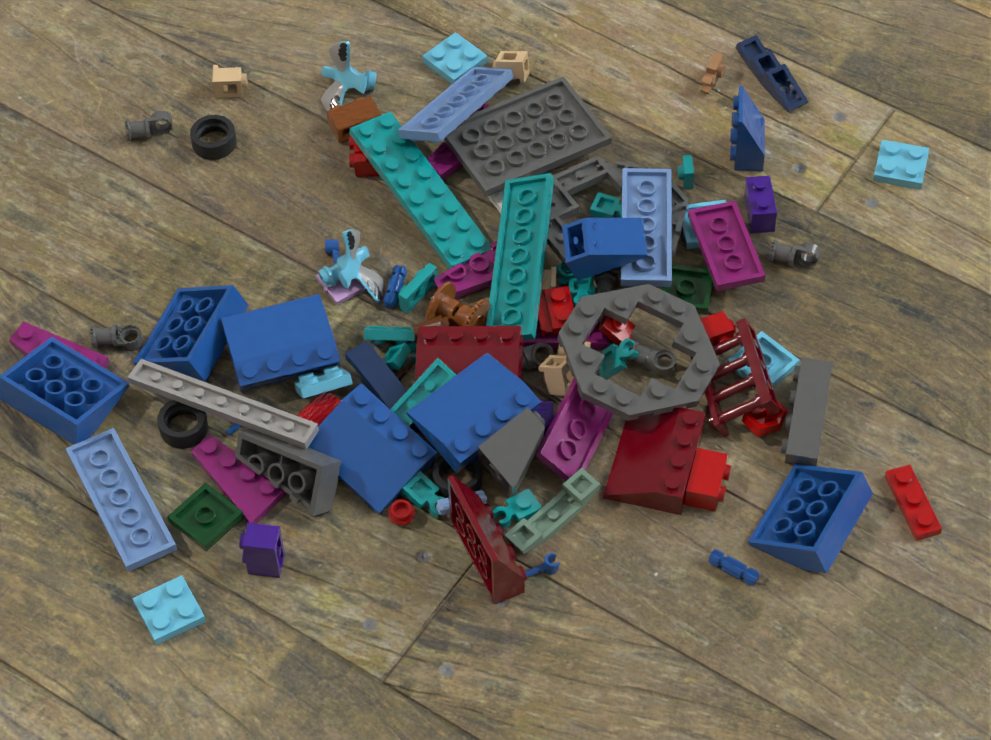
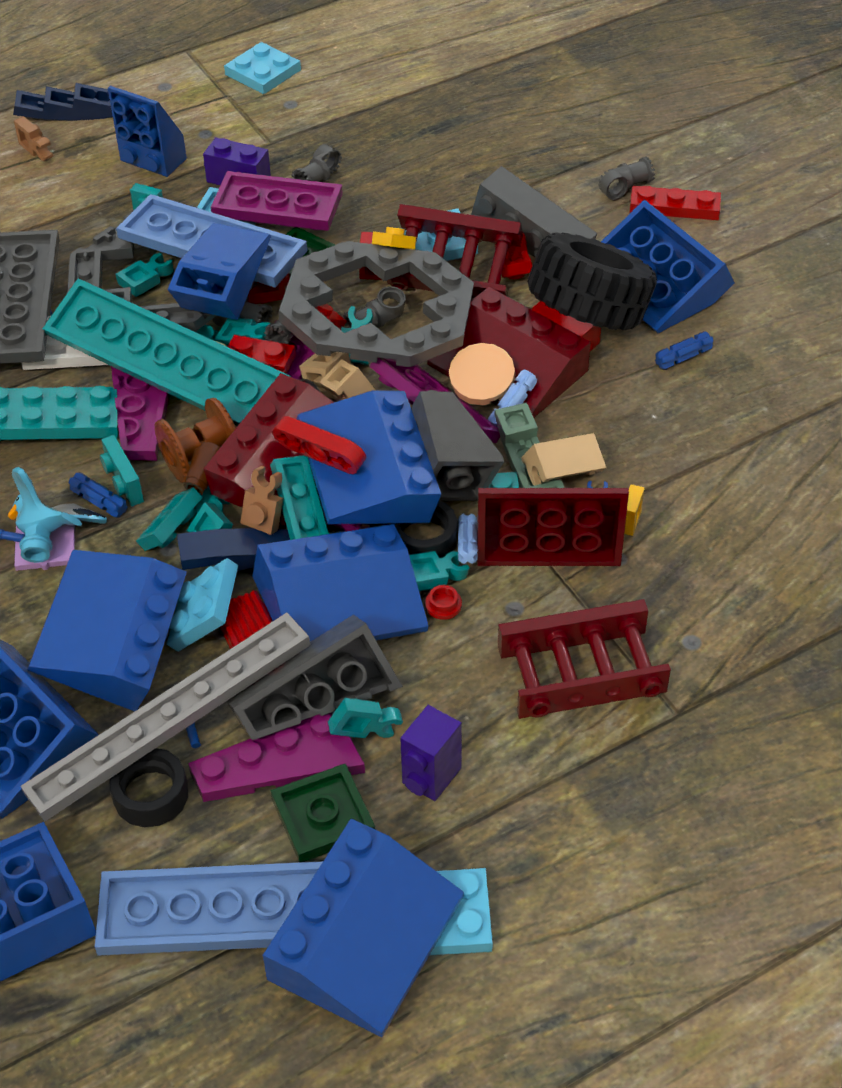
camera: 65 degrees left, 5 degrees down
(125, 565) = (362, 928): none -> blue slope
(276, 502) = (360, 717): none -> teal plate
(402, 584) = (578, 628): none -> dark red fence
(407, 373) = (260, 505): none -> medium nougat plate
(455, 374) = (319, 444): none -> red beam
(540, 588) = (634, 508): none -> yellow plate
(560, 530) = (563, 458): none -> tan hinge
(612, 475) = (516, 393): none -> light blue axle
(618, 446) = (481, 373): none -> light nougat tile
(713, 332) = (394, 238): none -> yellow plate
(760, 458) = (591, 281): none -> black tyre
(915, 455) = (627, 176): none -> dark grey connector

